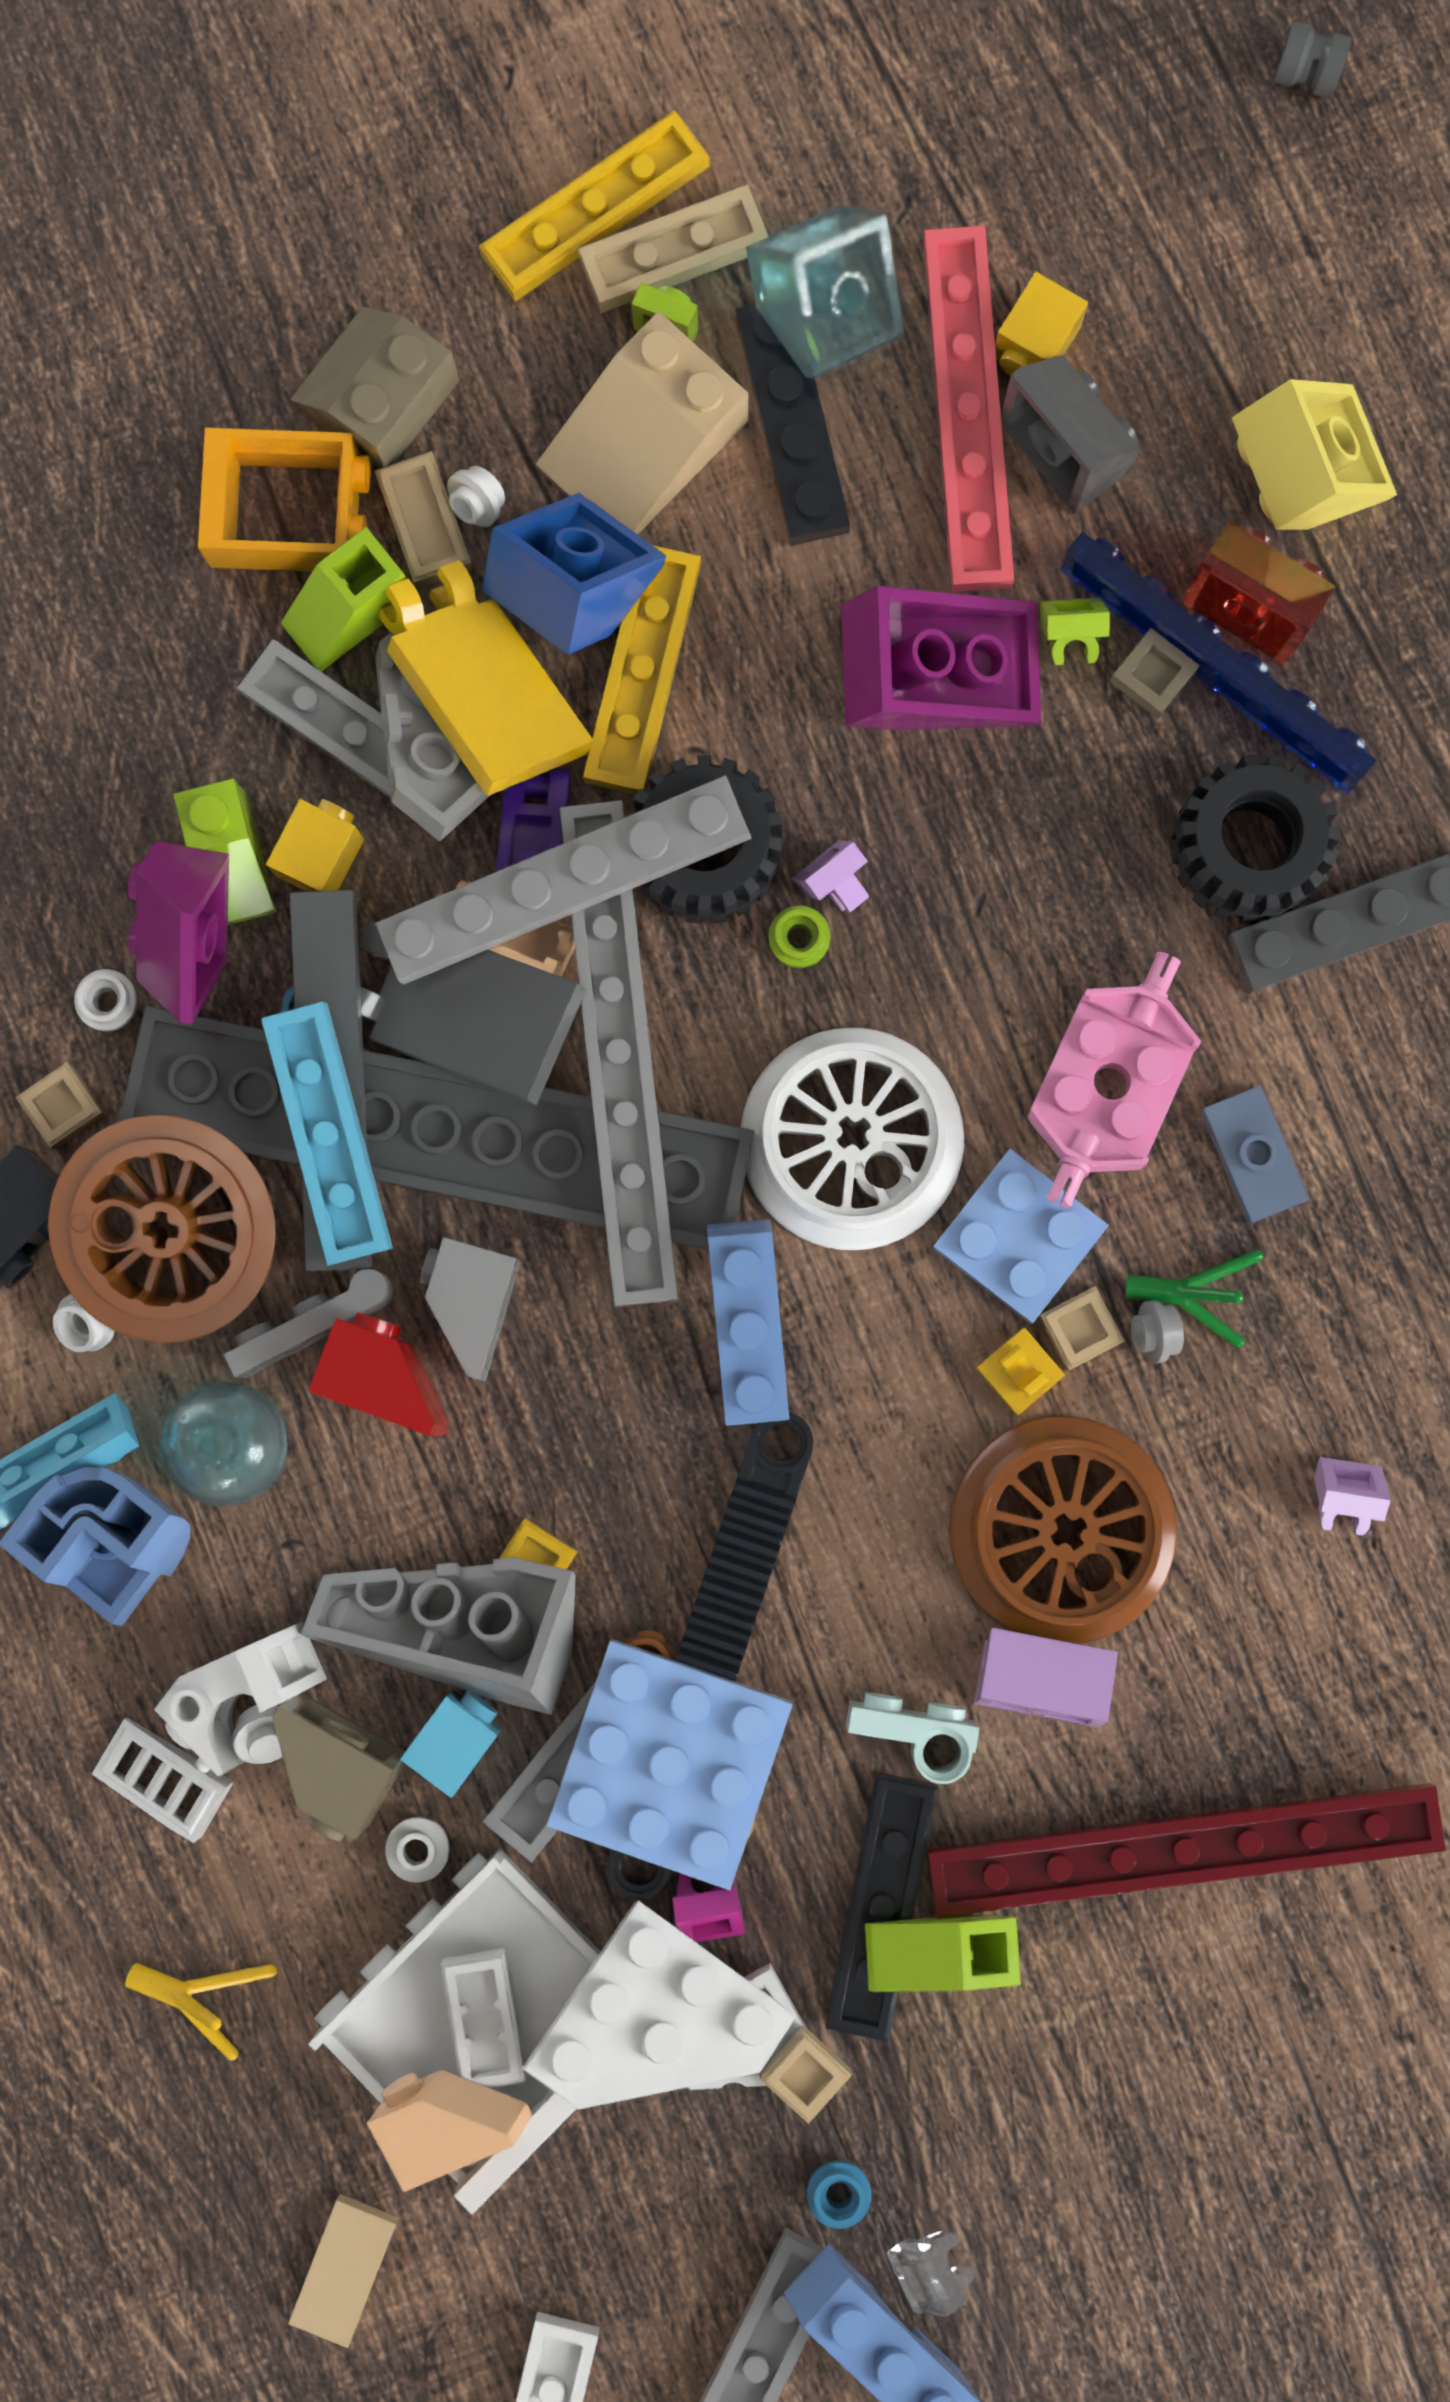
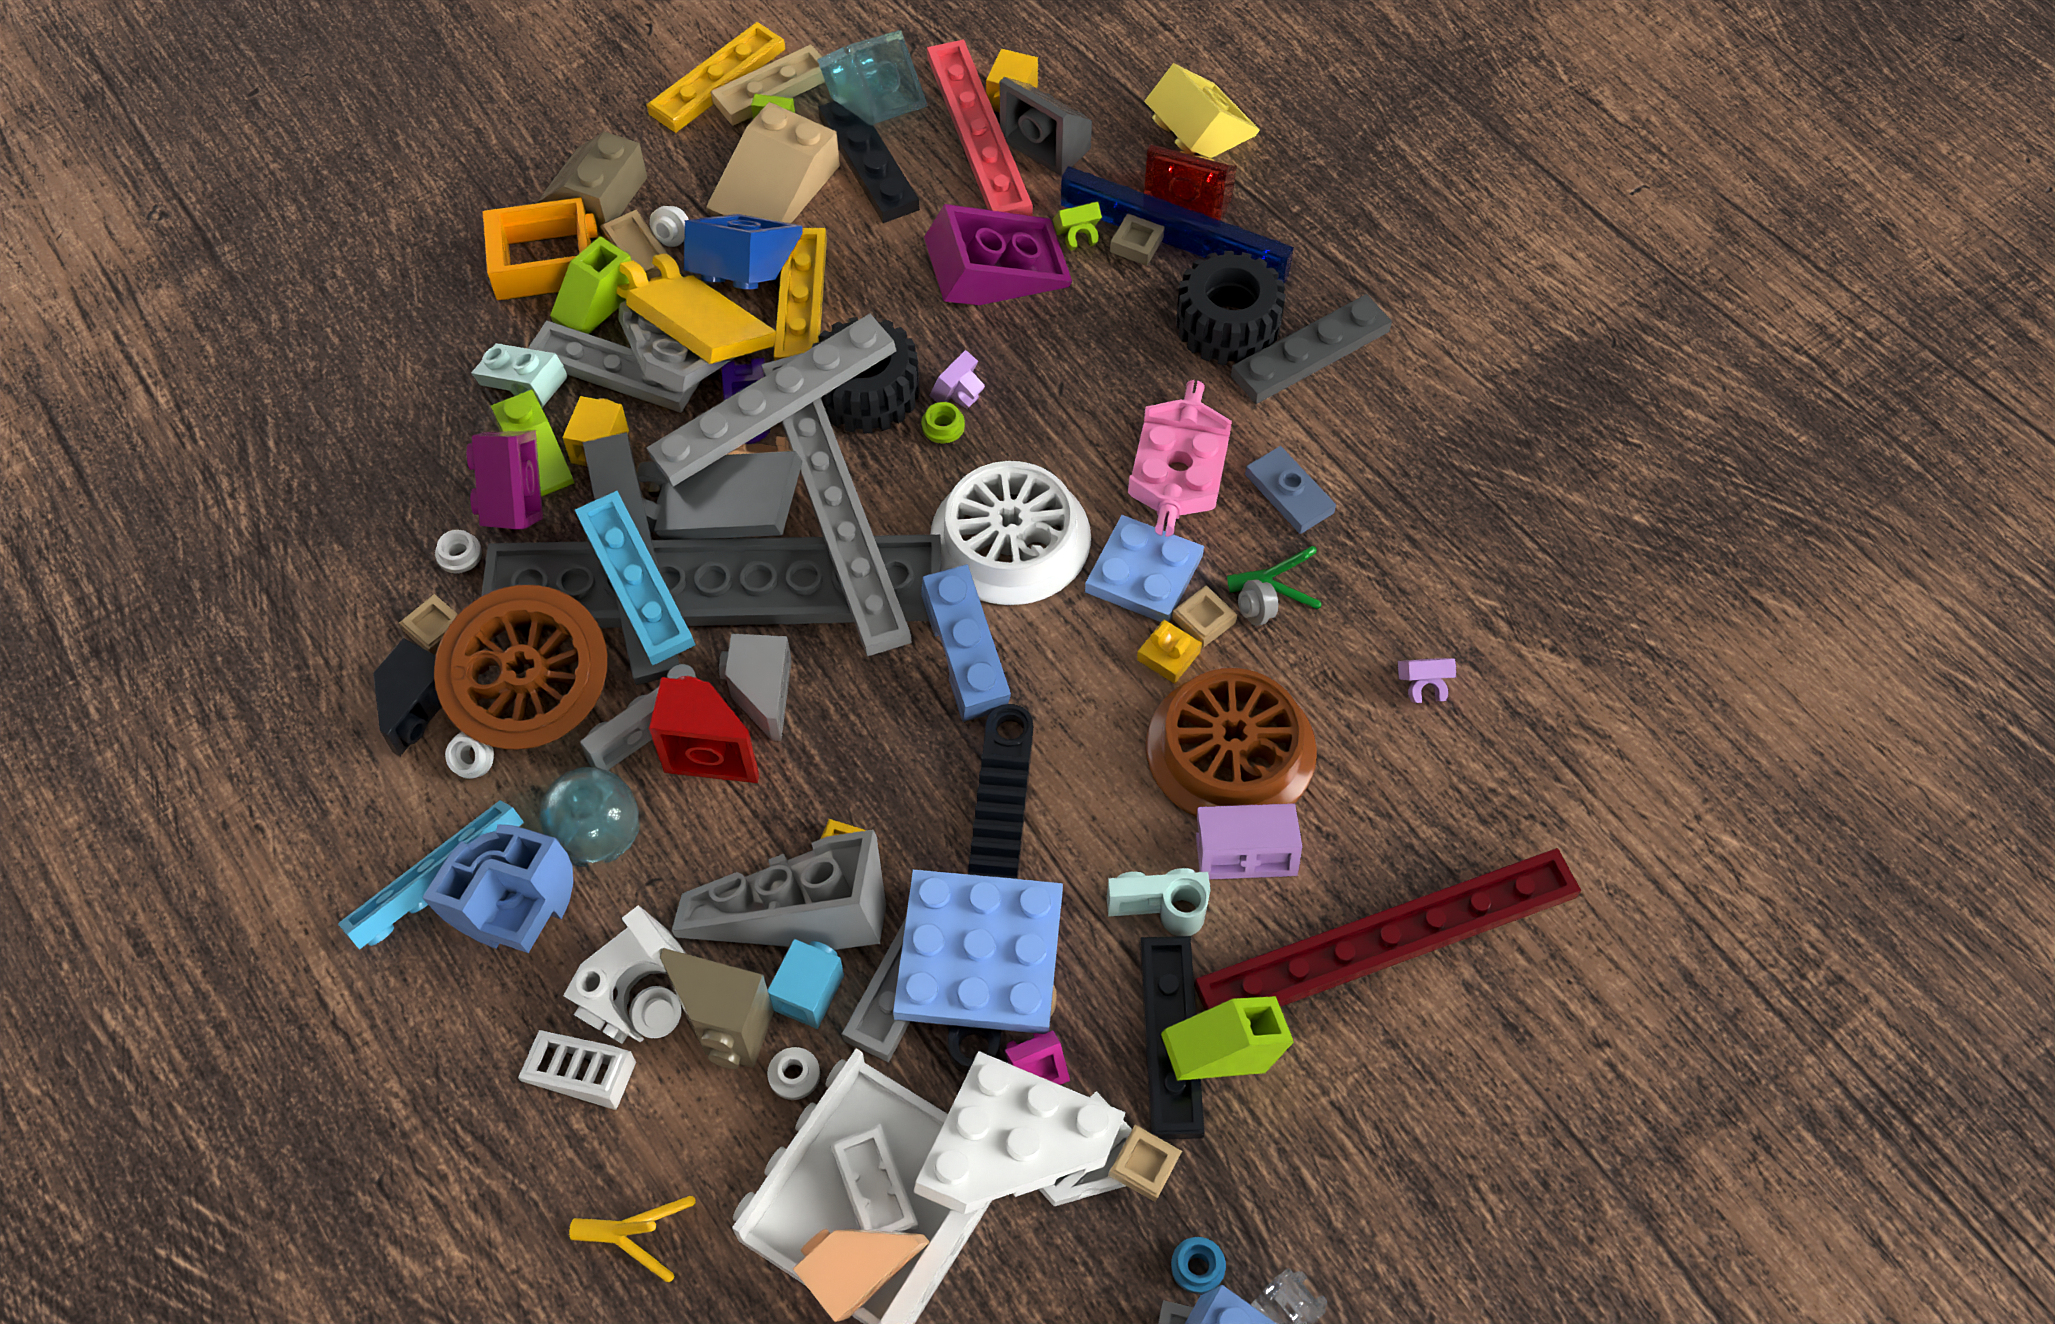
camera: 20 degrees left, 25 degrees down
(224, 718) = (520, 371): none -> light aqua plate

